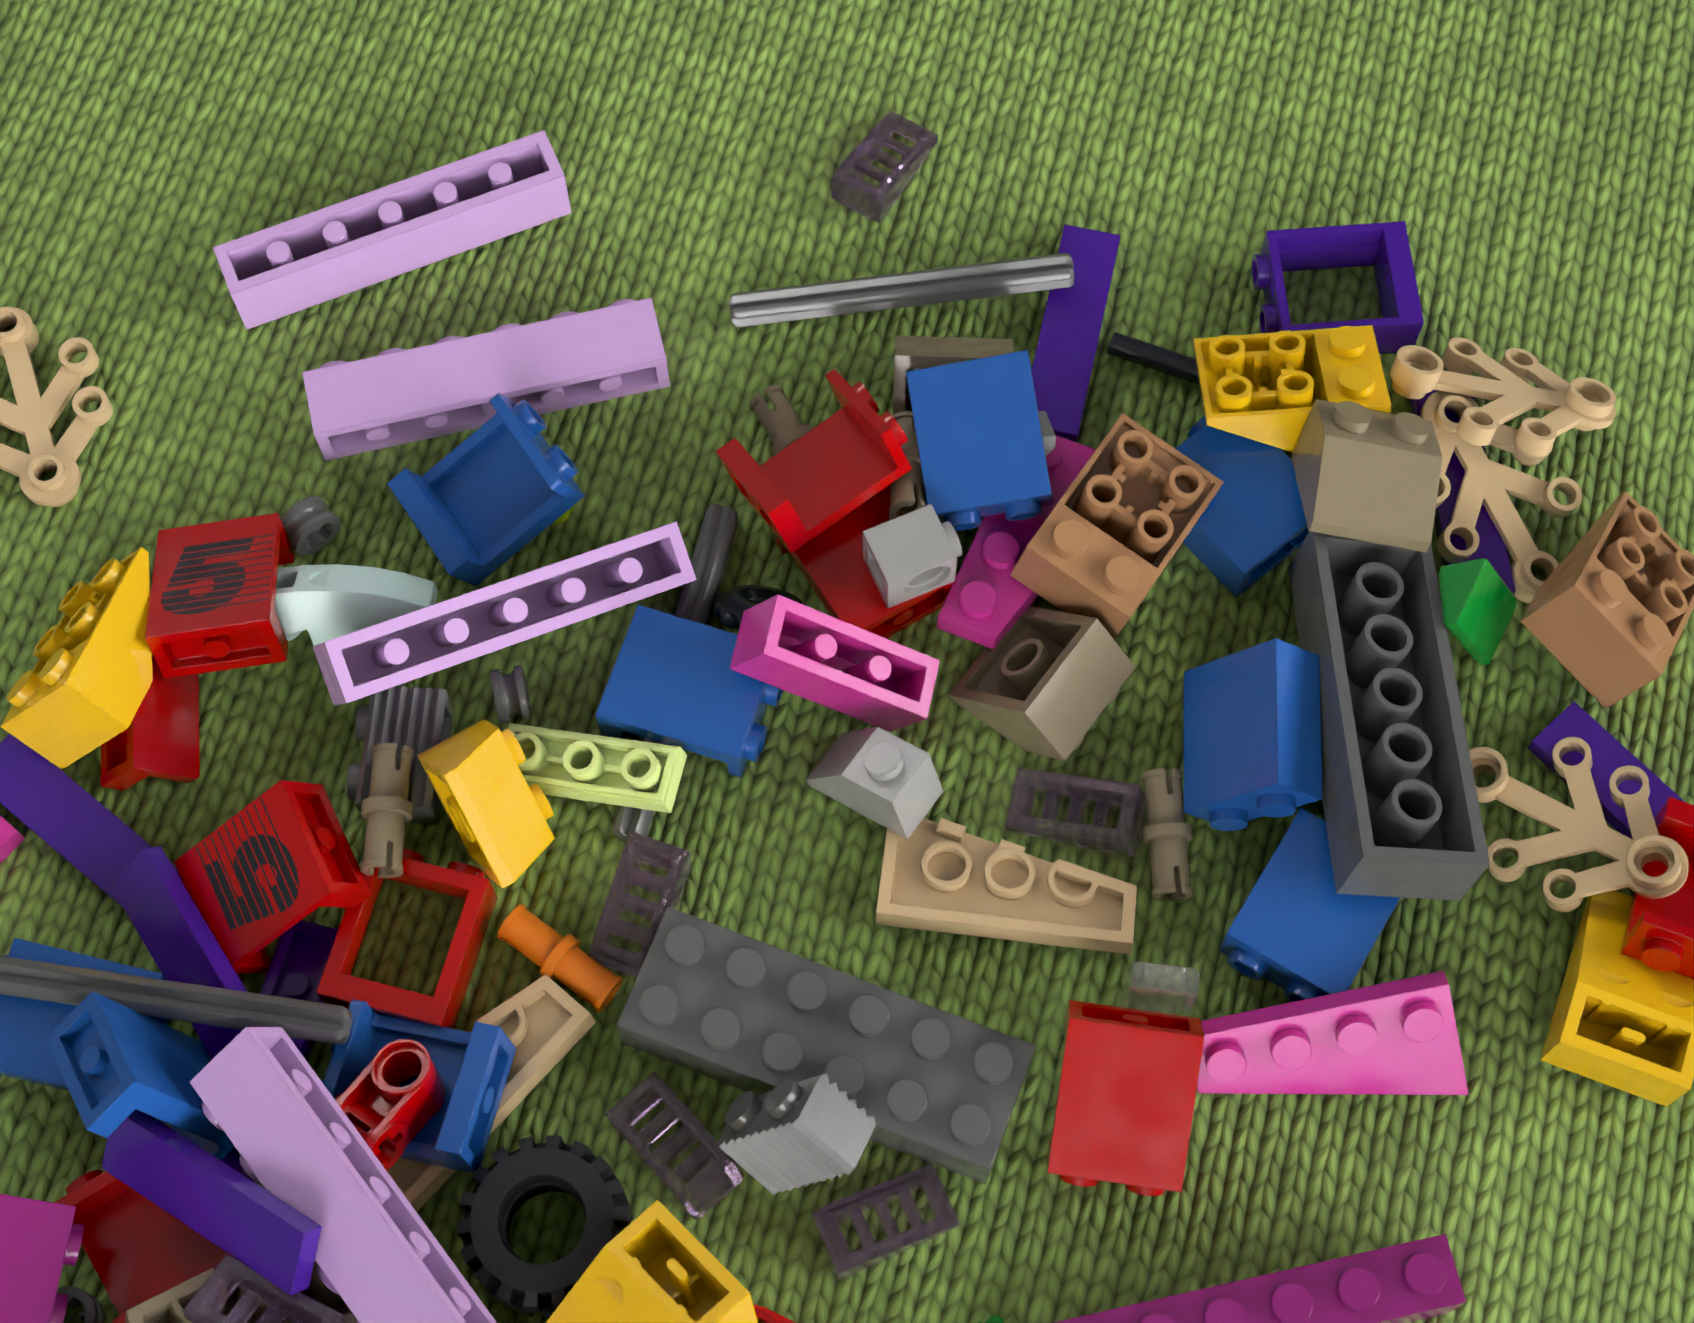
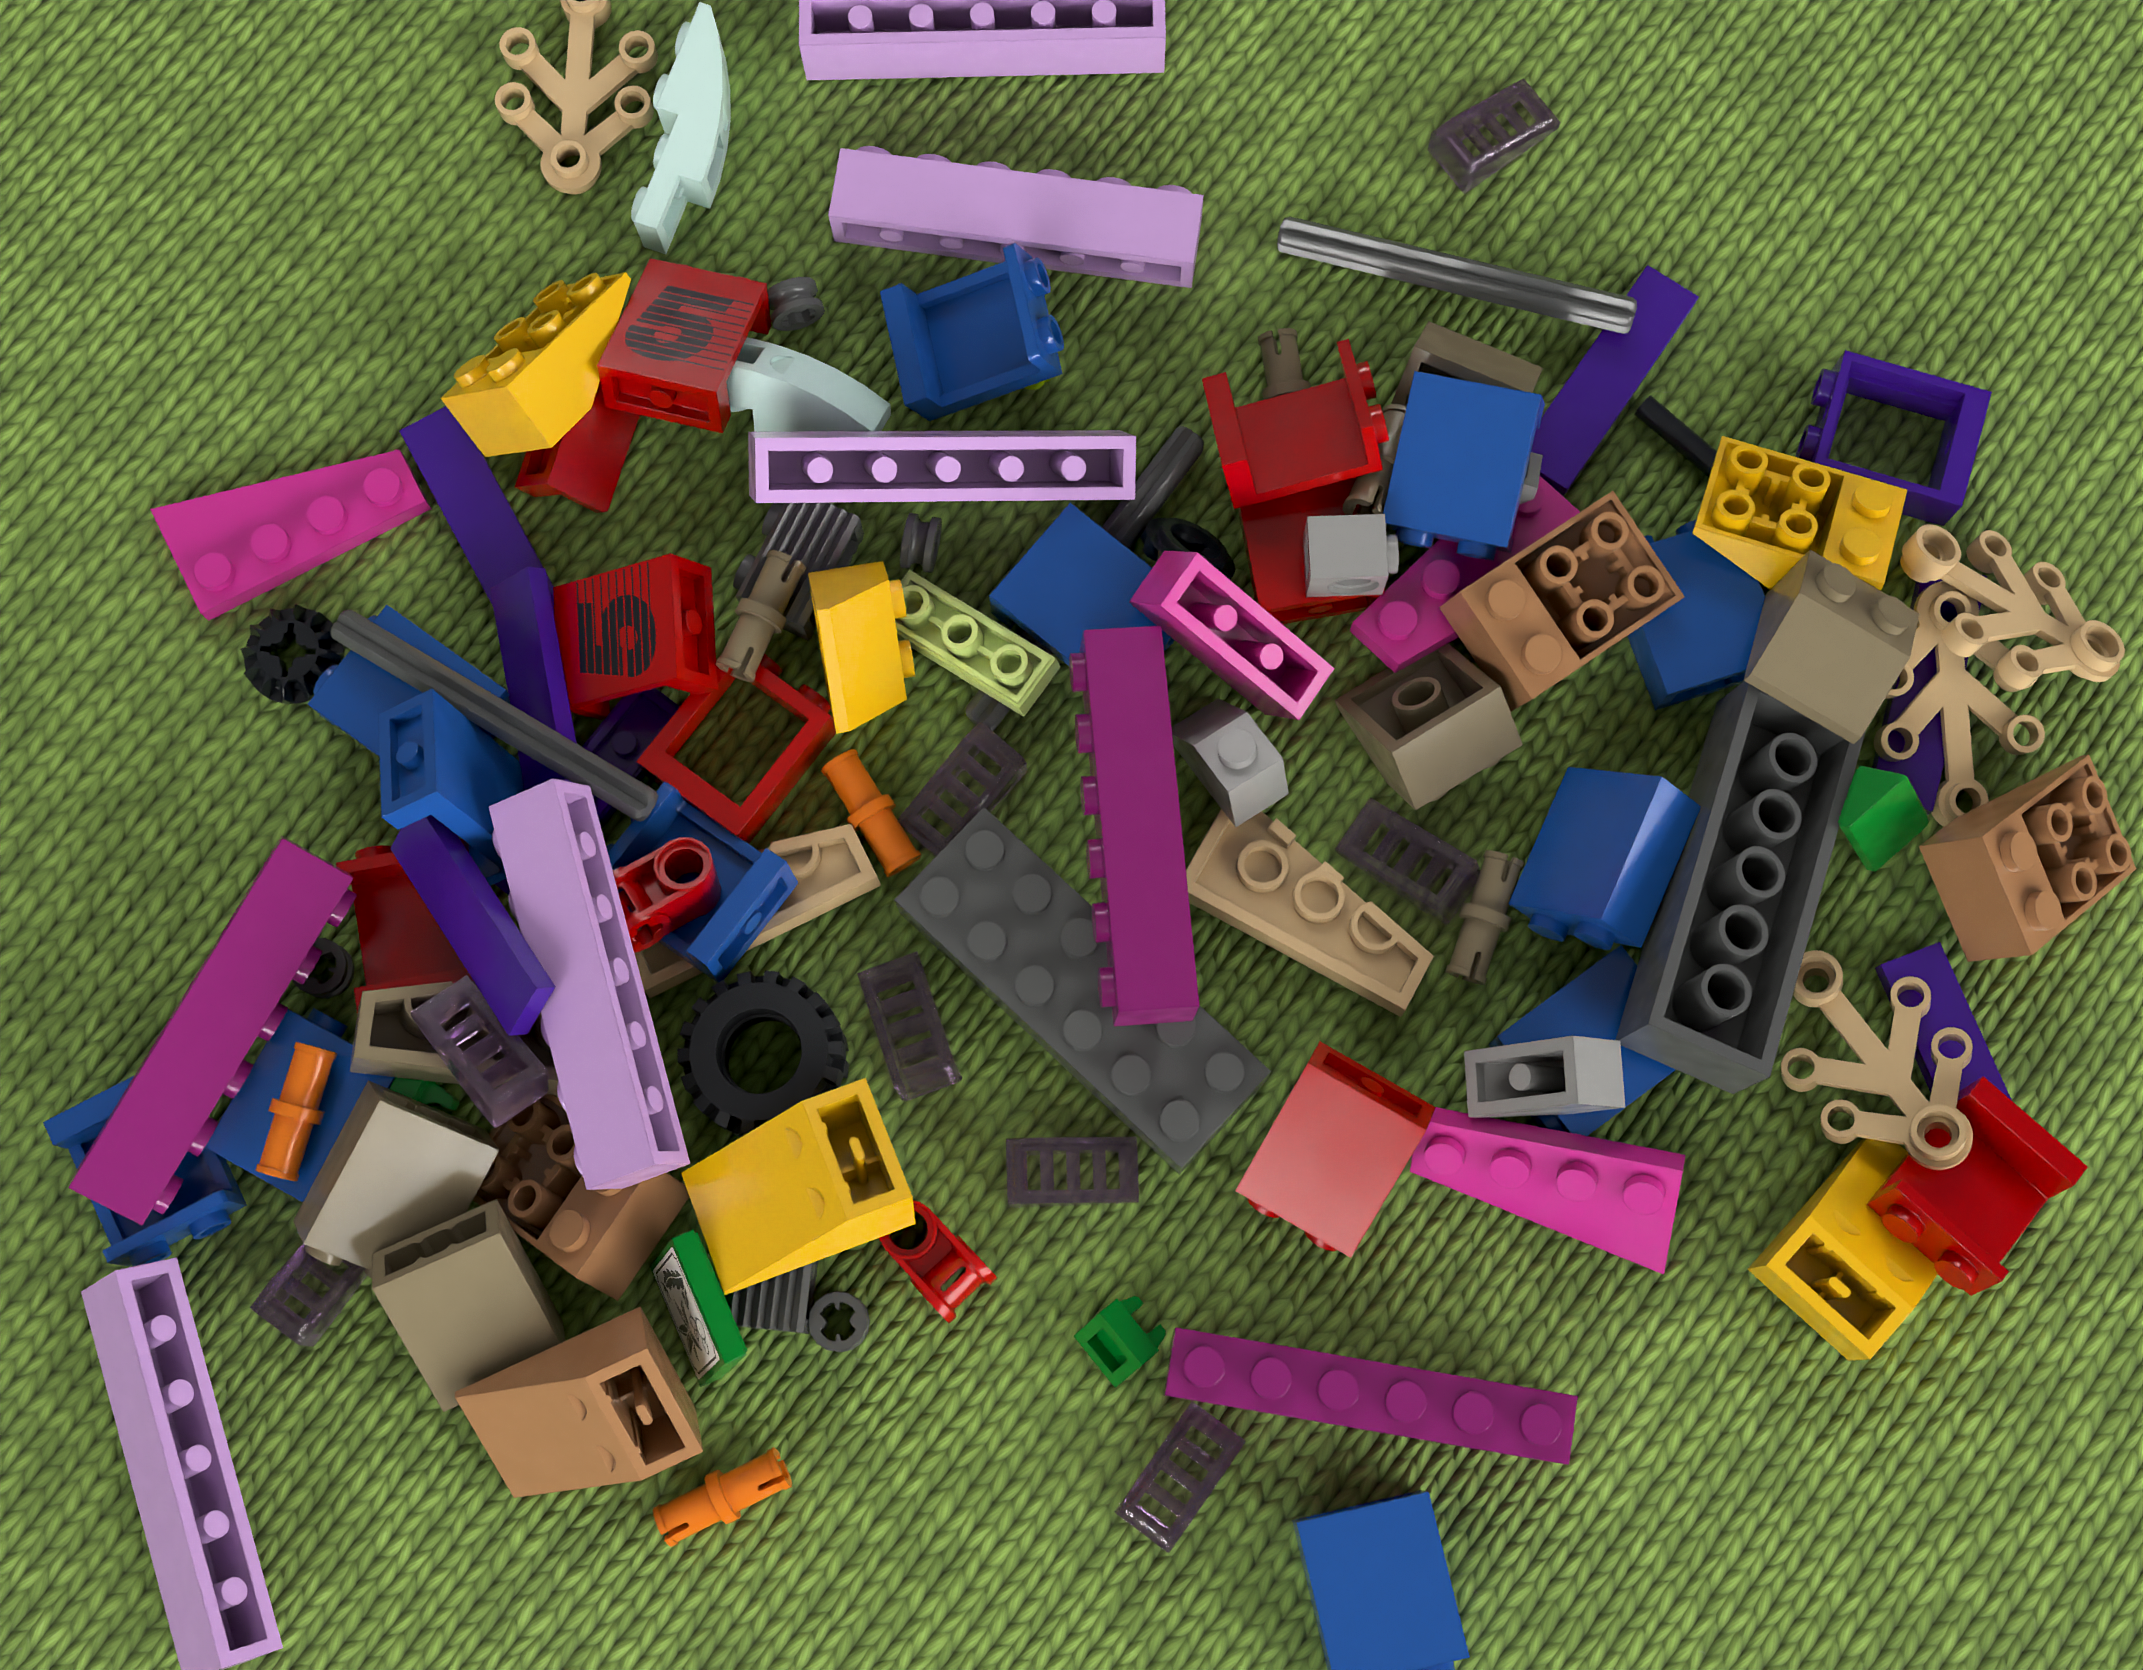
camera: 25 degrees right, 10 degrees up
(157, 411) = (696, 128): none -> light aqua slope
(796, 1133) = (1018, 1065): brick -> none
(821, 868) = (1136, 826): none -> magenta brick
(1160, 988) = (1408, 1066): clear tile -> none
(1287, 950) = (1545, 1078): none -> light grey slope

